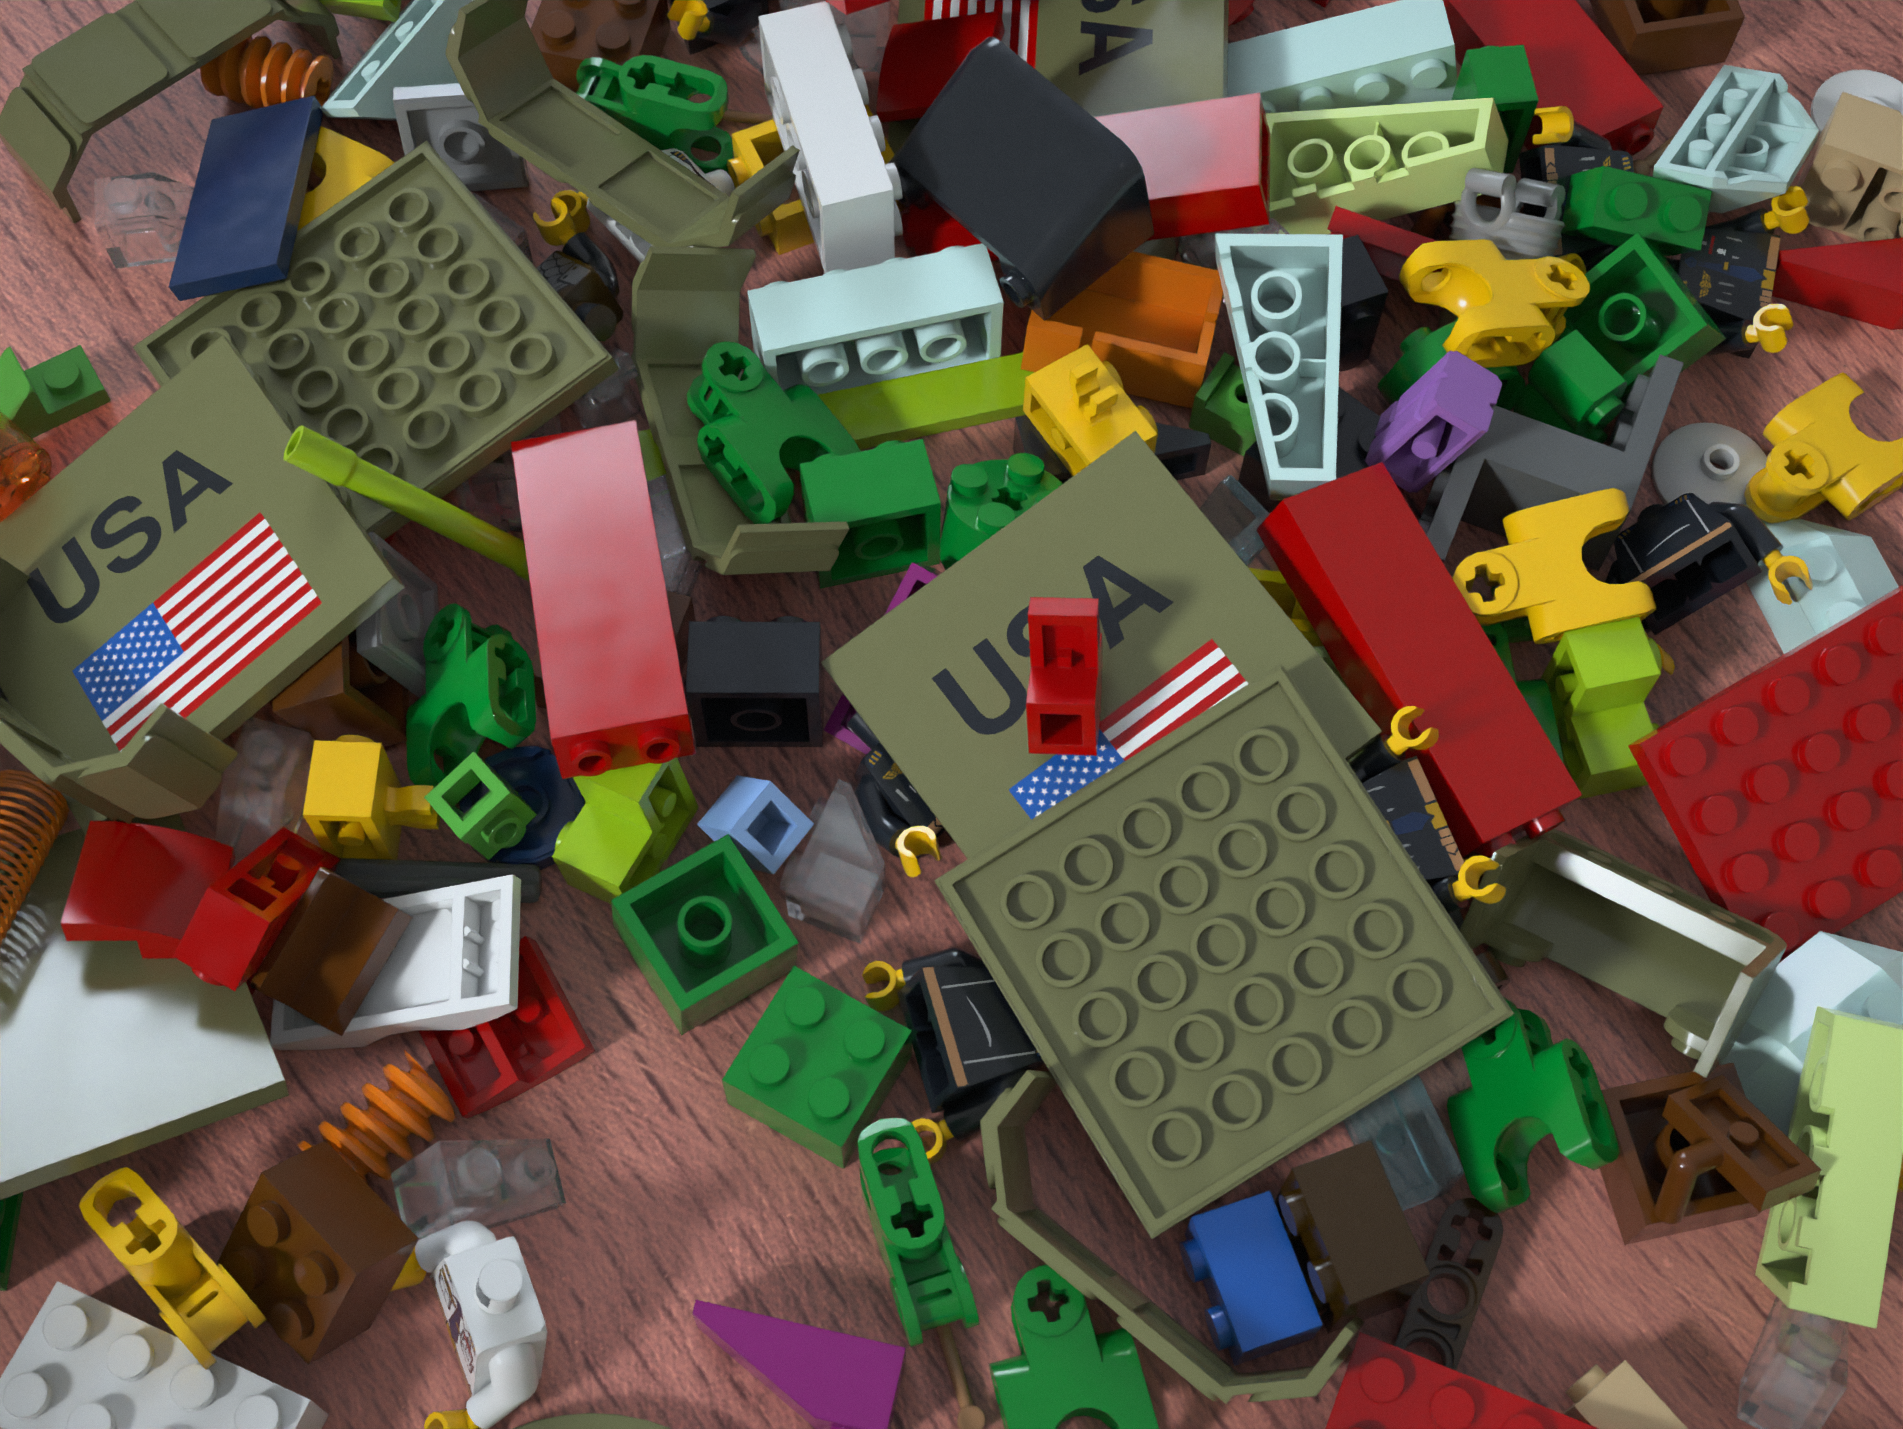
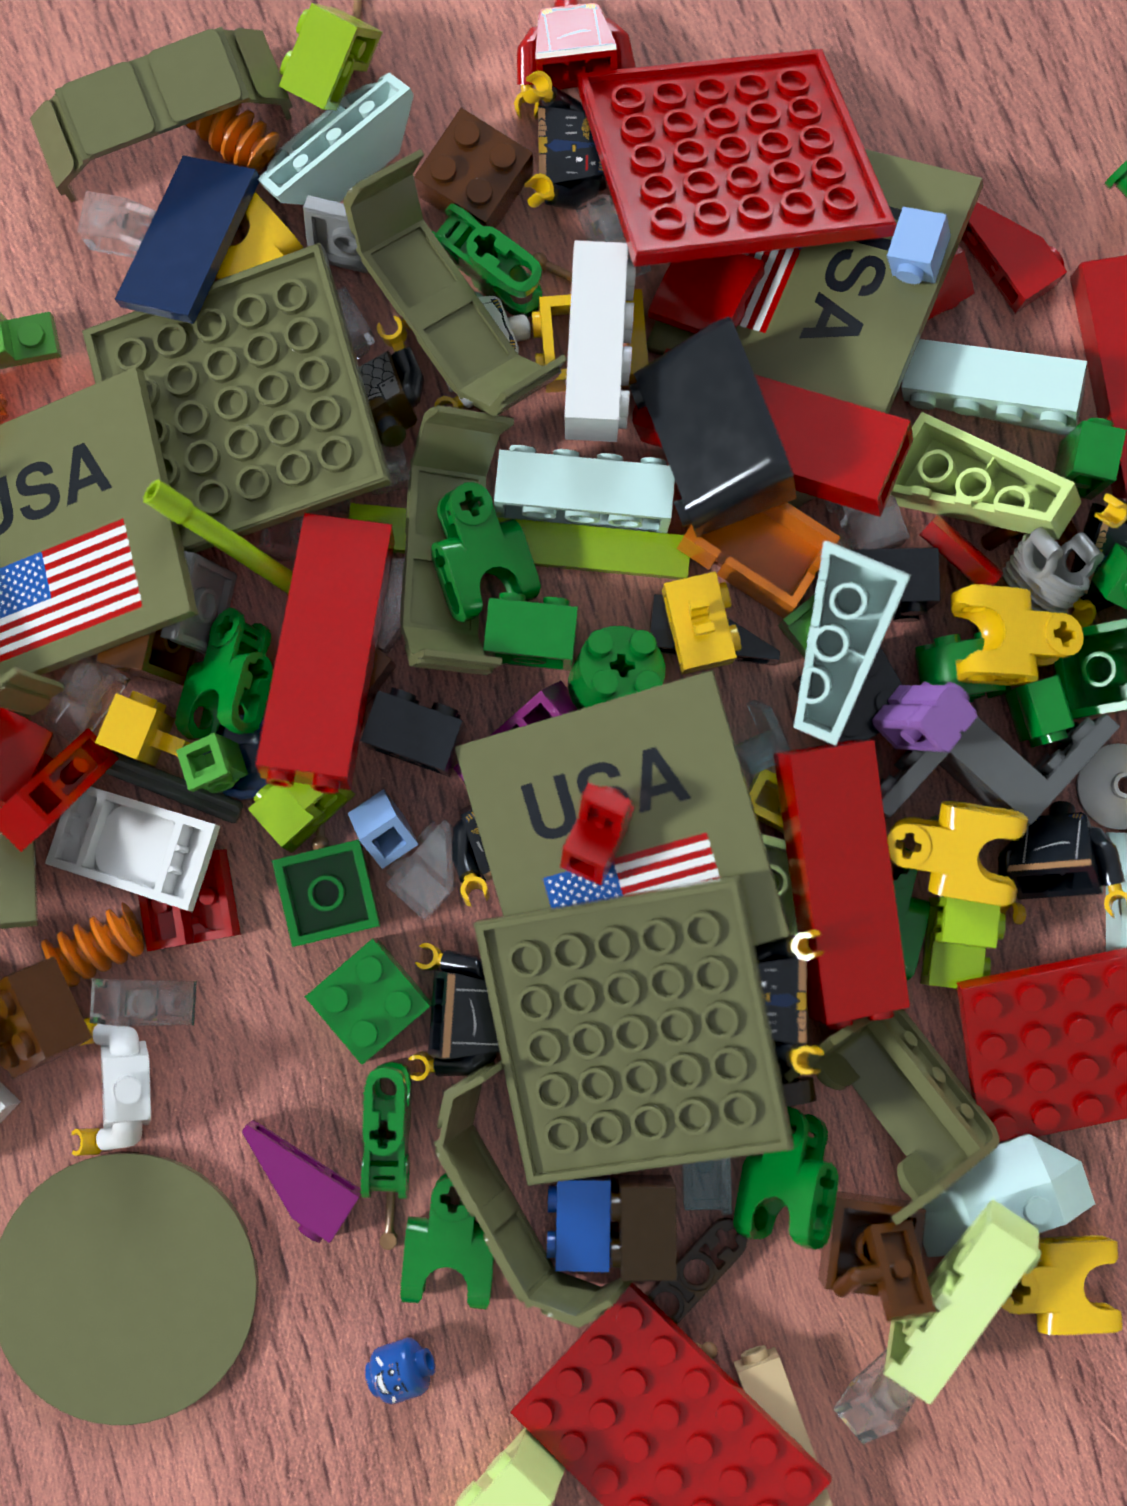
camera: 20 degrees right, 20 degrees up
(331, 951) = (94, 828): reddish brown panel -> none

